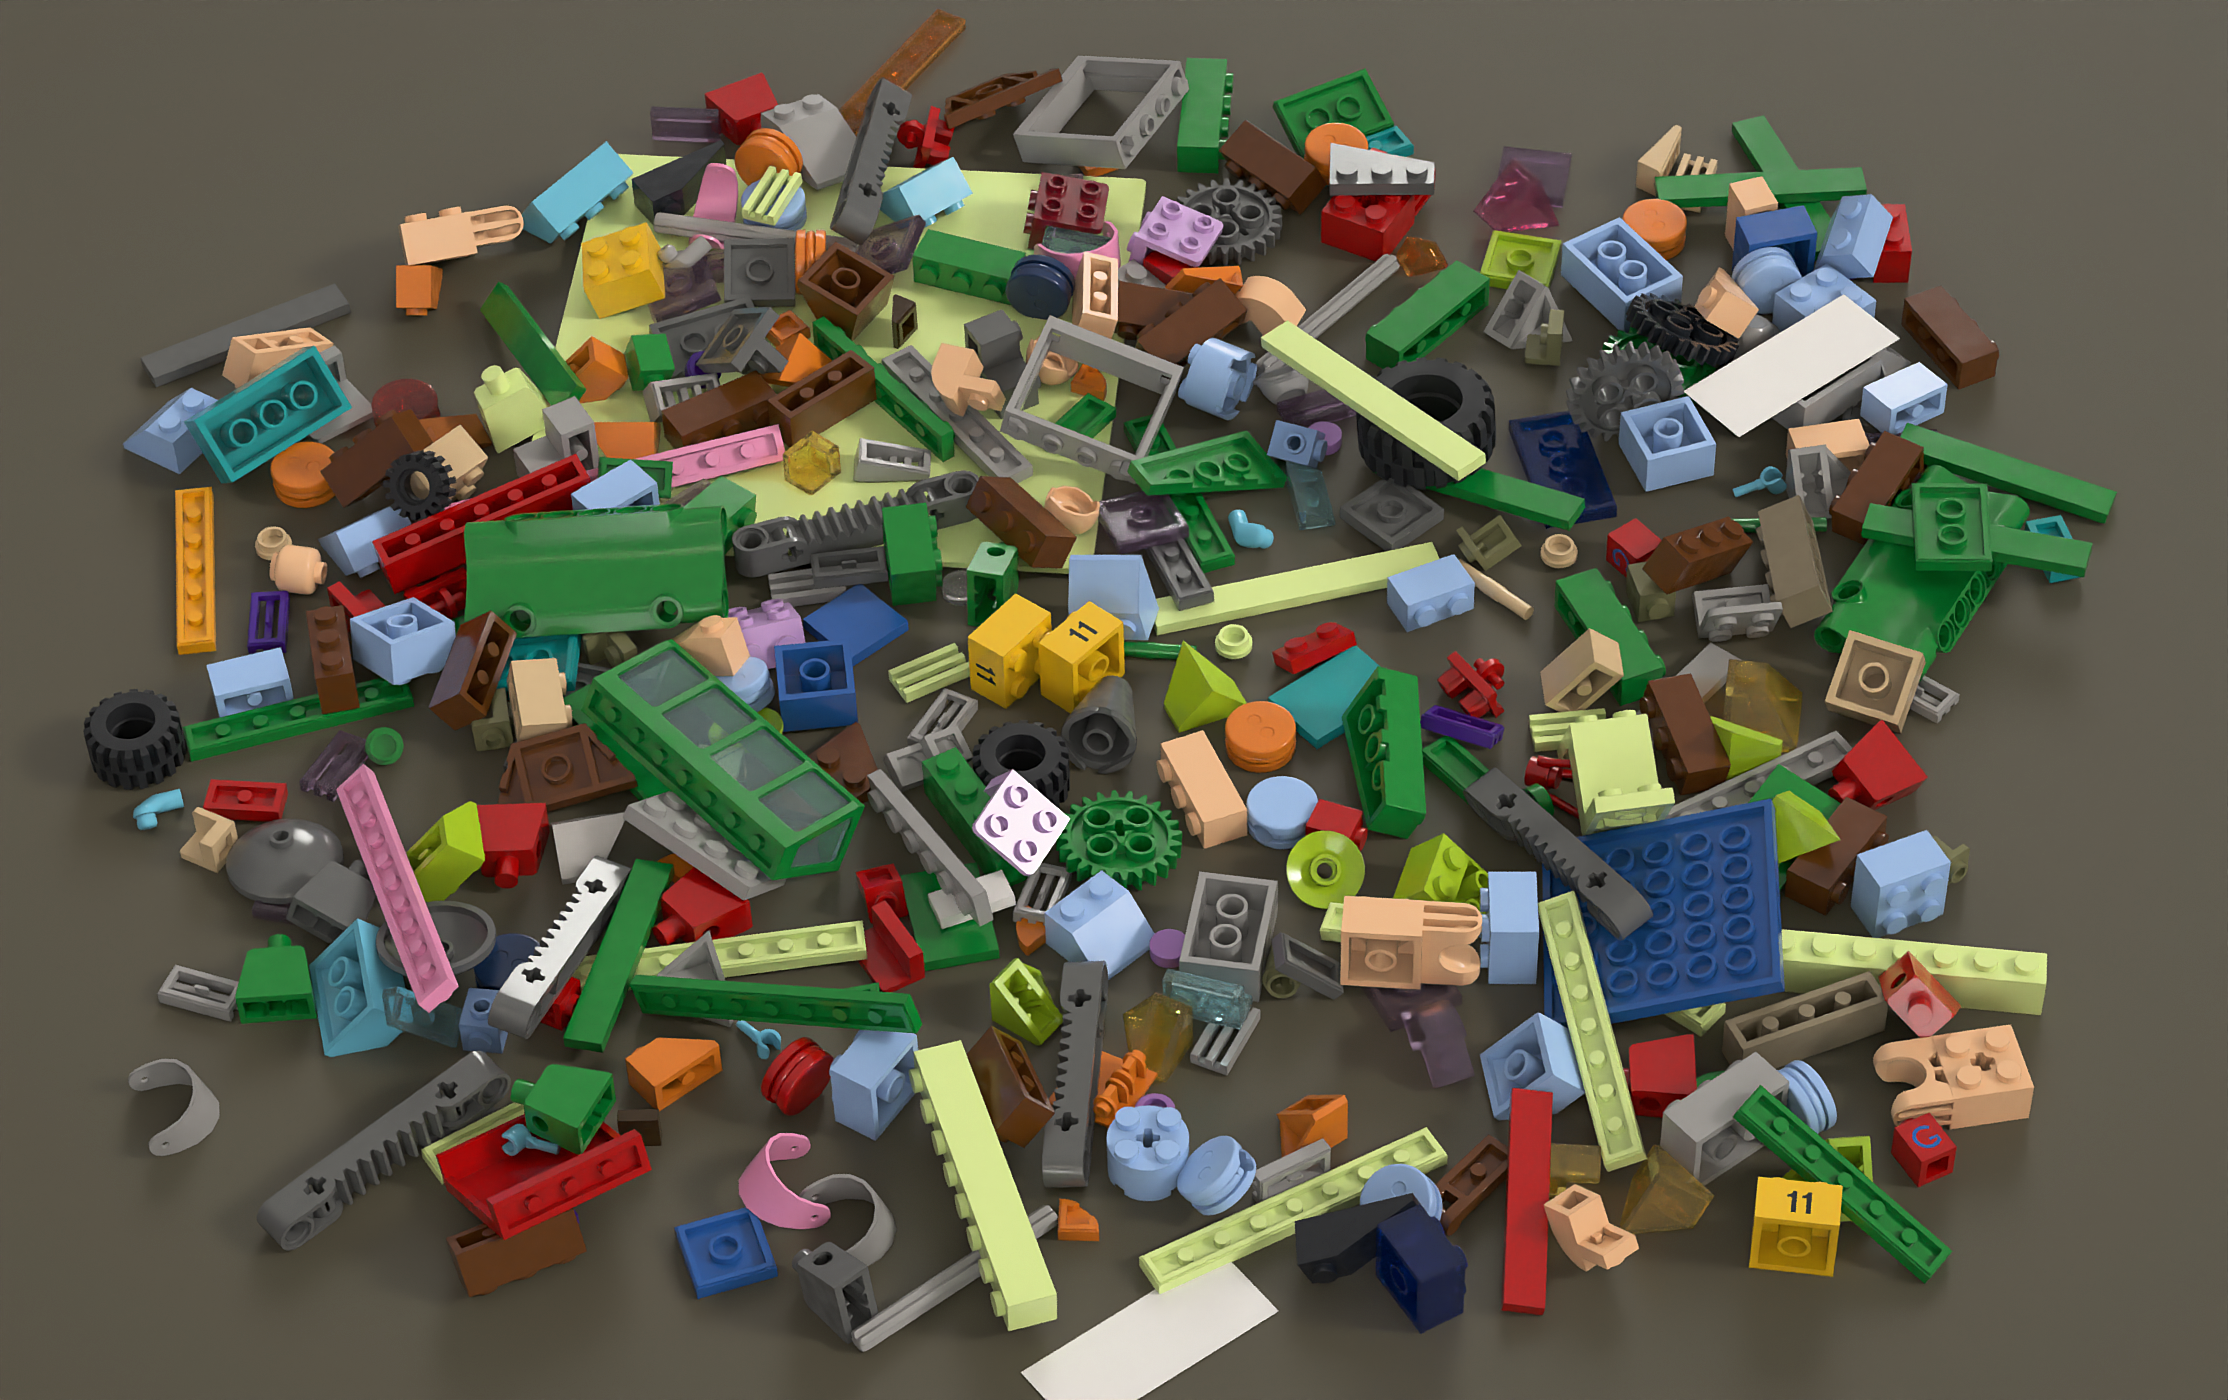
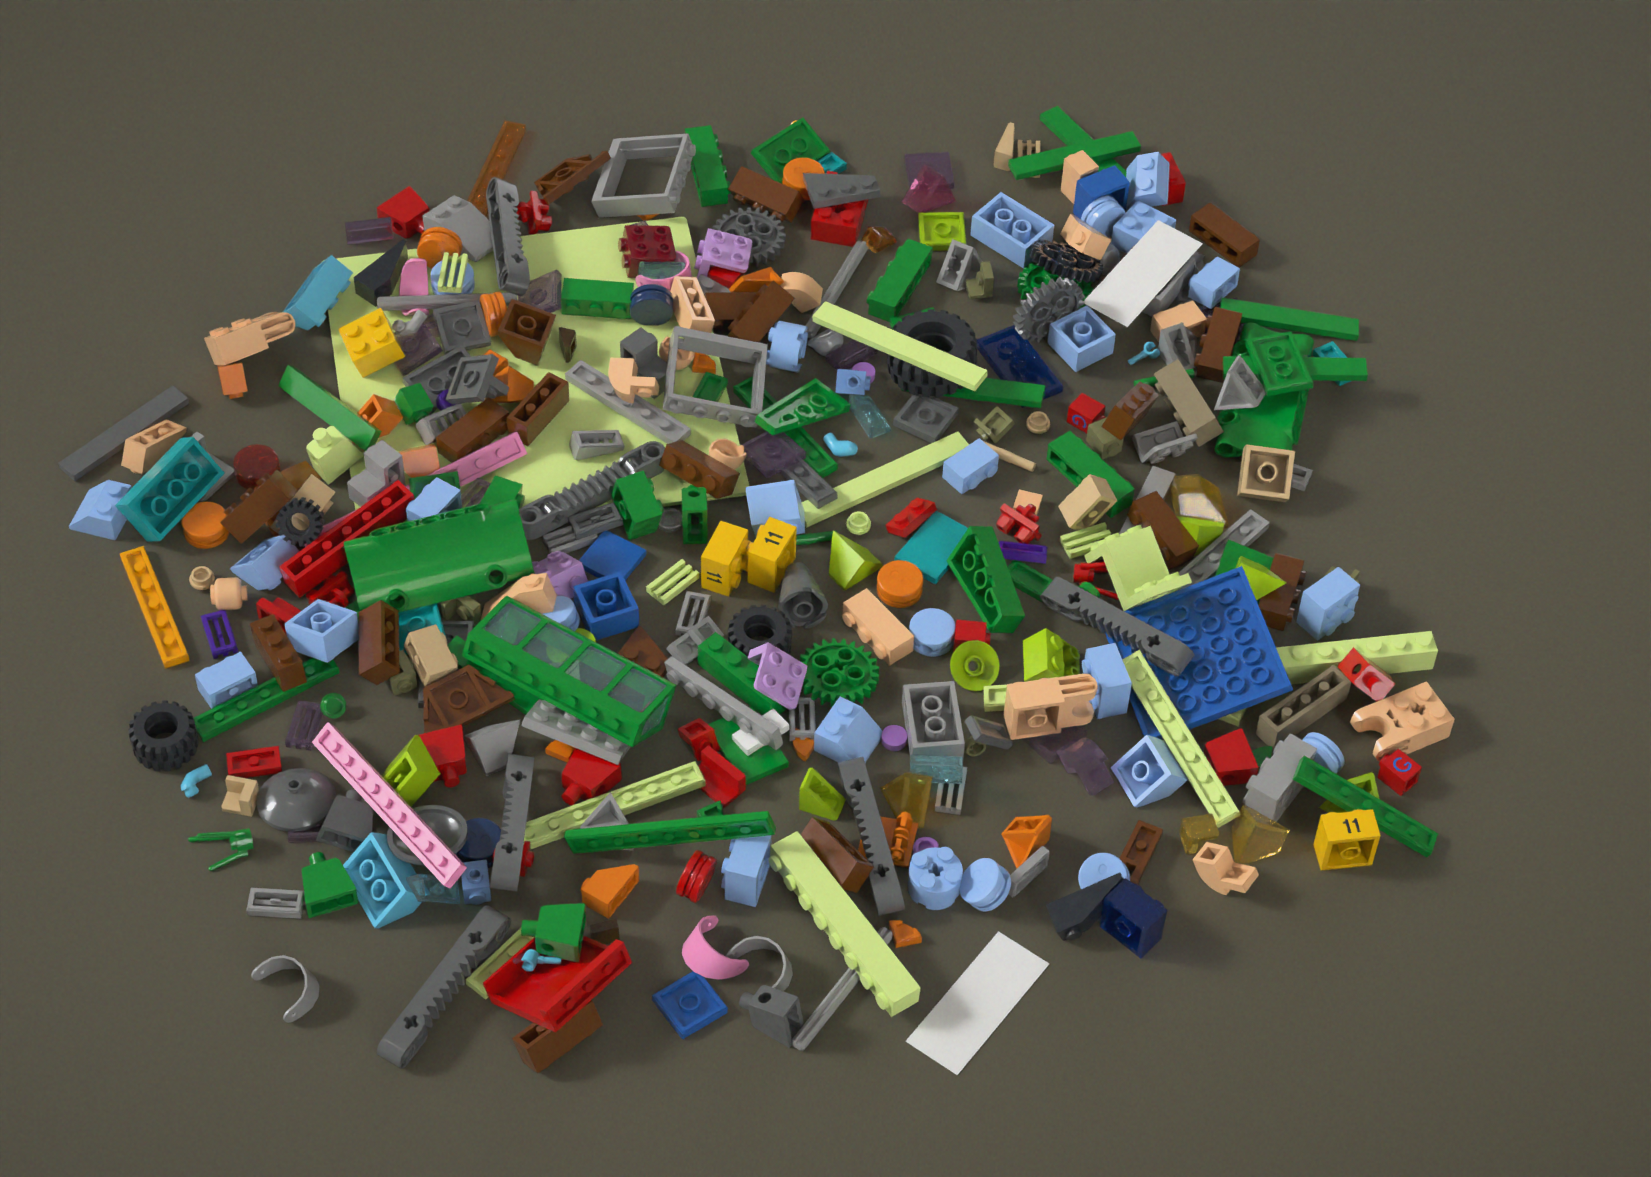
camera: 20 degrees left, 5 degrees up
(183, 898) = (239, 840): none -> green plant
(618, 956) = (547, 819): green tile -> none
(761, 1038) = (663, 852): medium azure hand -> none
(811, 463) = (546, 453): clear yellow panel -> none
(891, 395) = (579, 396): green plate -> none
(927, 193) = (551, 251): medium azure slope -> none
(1276, 1216) = (1032, 897): yellowish green tile -> none
(1508, 656) = (1024, 498): none -> light nougat tile
(1525, 1199) = (1178, 858): red tile -> none
(1659, 224) = (1021, 189): orange head -> none
(1875, 550) = (1240, 388): none -> light grey slope
(1876, 770) = (1285, 530): red torso -> none

